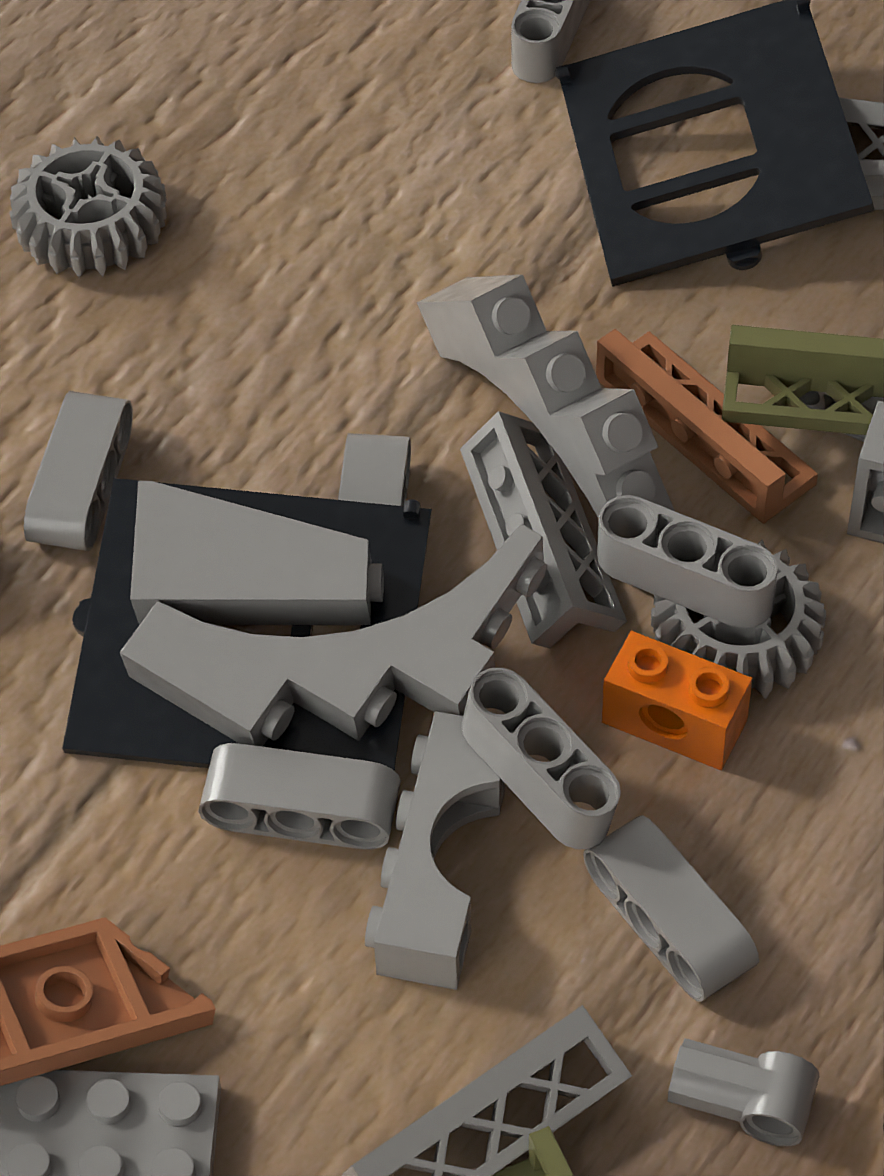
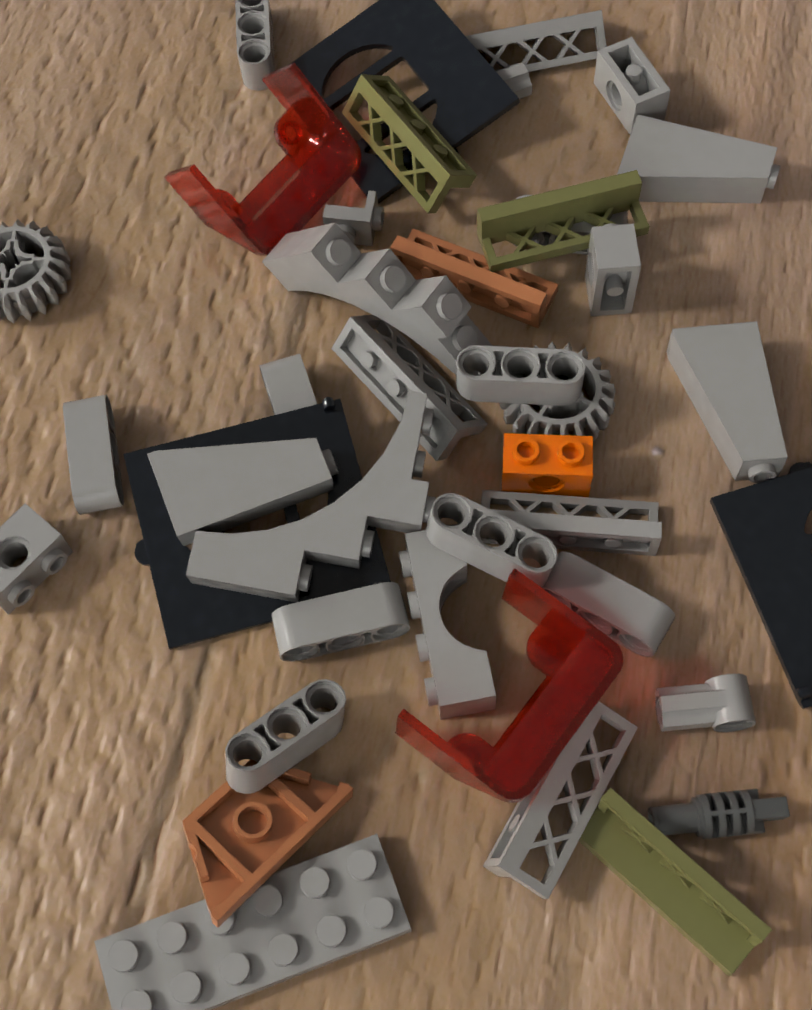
camera: 20 degrees left, 10 degrees up
(155, 903) = (276, 754): none -> light grey beam
(560, 199) = (316, 165): none -> clear red windscreen
(570, 298) = (357, 222): none -> light grey bracket
(579, 961) = (578, 671): none -> clear red windscreen
(687, 802) = (583, 533): none -> light grey fence
(702, 198) = (411, 131): none -> olive fence

